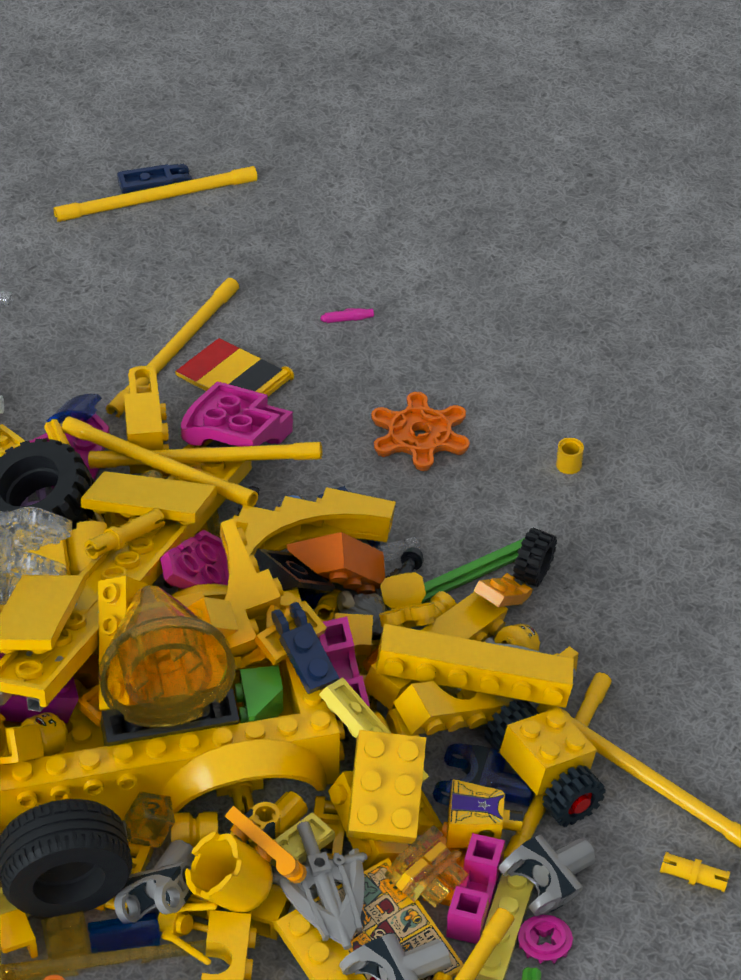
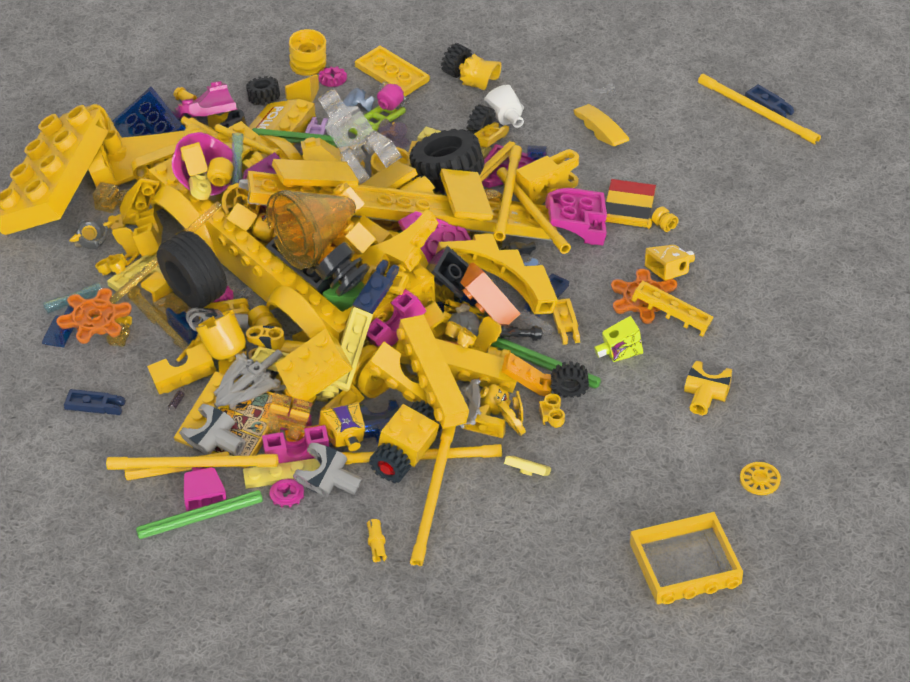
camera: 65 degrees right, 0 degrees up
(79, 333) = (602, 125): none -> yellow slope
(116, 537) = (419, 191): yellow pin -> none
(149, 819) = (251, 296): clear yellow brick -> none
(219, 297) = (692, 170): yellow piece -> none
(264, 663) = (342, 269): none -> black wheel
(266, 846) = (246, 337): light orange plate -> none
(296, 354) = (663, 218): none -> yellow wheel
(347, 315) = (727, 230): dark pink piece -> none
(380, 382) = (668, 261): none -> yellow torso
(421, 523) = (566, 320): none -> yellow hinge
(468, 412) = (673, 306): none -> yellow hinge
(496, 489) = (621, 341): none -> neon yellow torso
(560, 617) = (548, 409): none -> yellow piece
(569, 455) = (677, 368): yellow beam -> none
(579, 638) = (510, 418): none -> yellow wheel
(618, 444) = (706, 387): none -> yellow connector
(651, 663) = (527, 467): none -> light yellow plate

